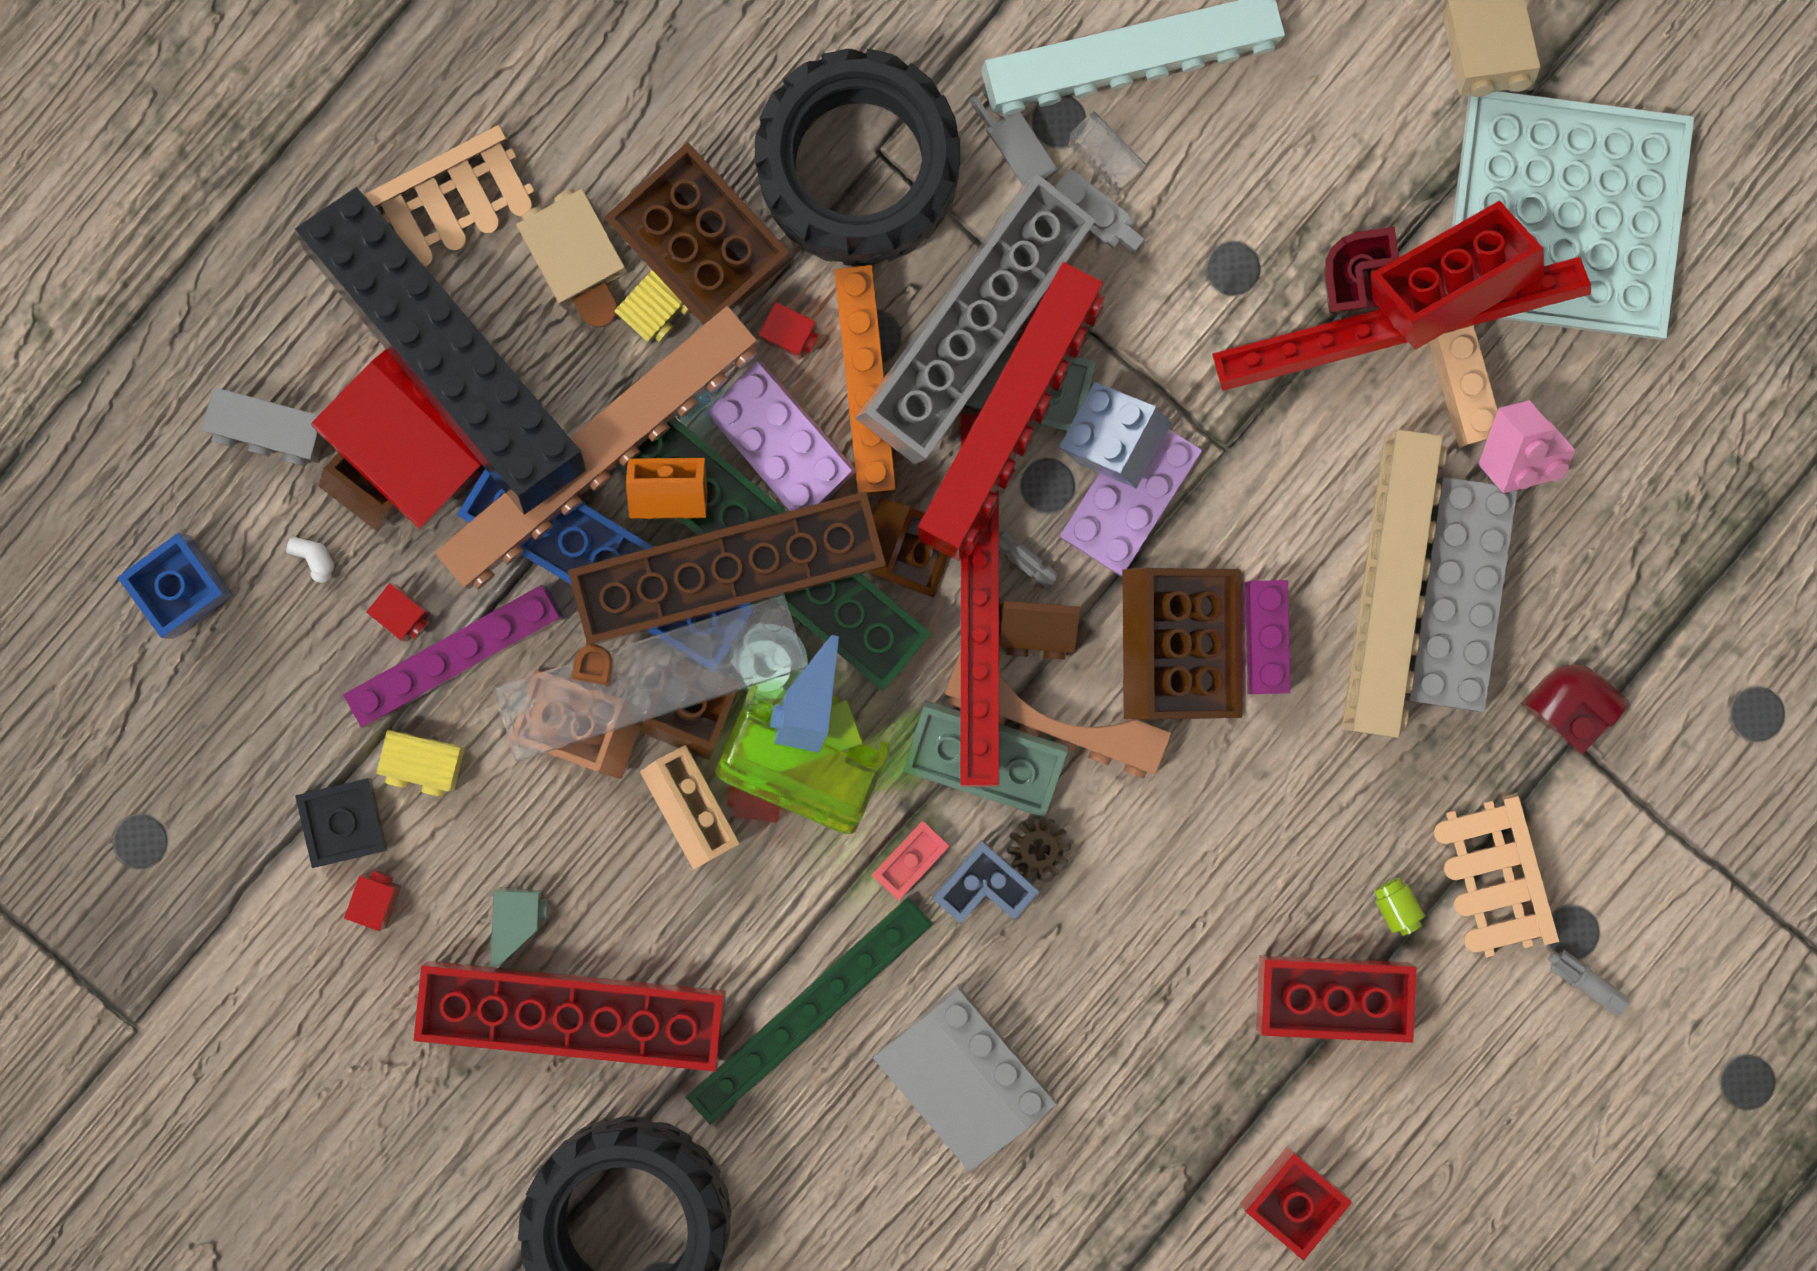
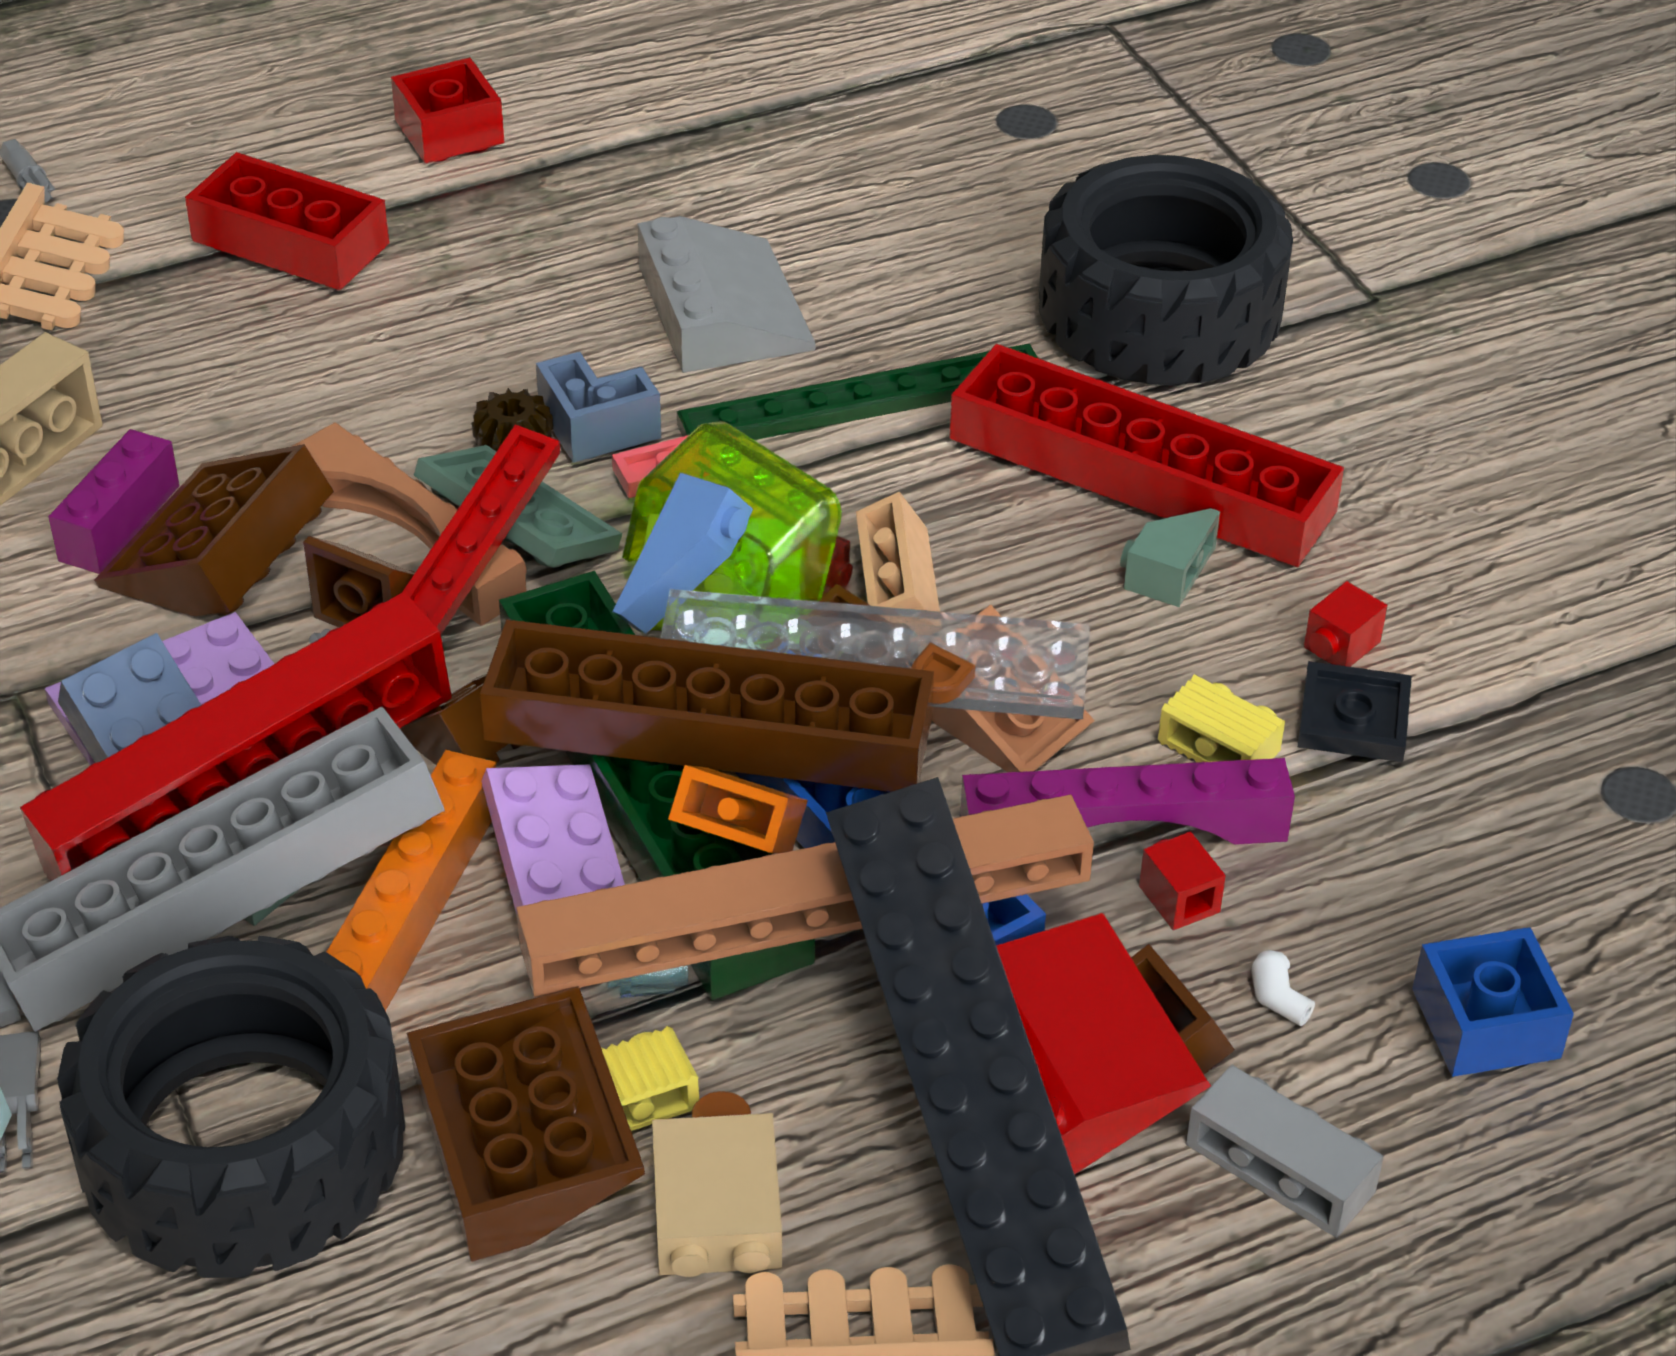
camera: 160 degrees left, 45 degrees down
(789, 331) = (470, 980): red brick -> none
(1399, 906) = (164, 270): lime brick -> none

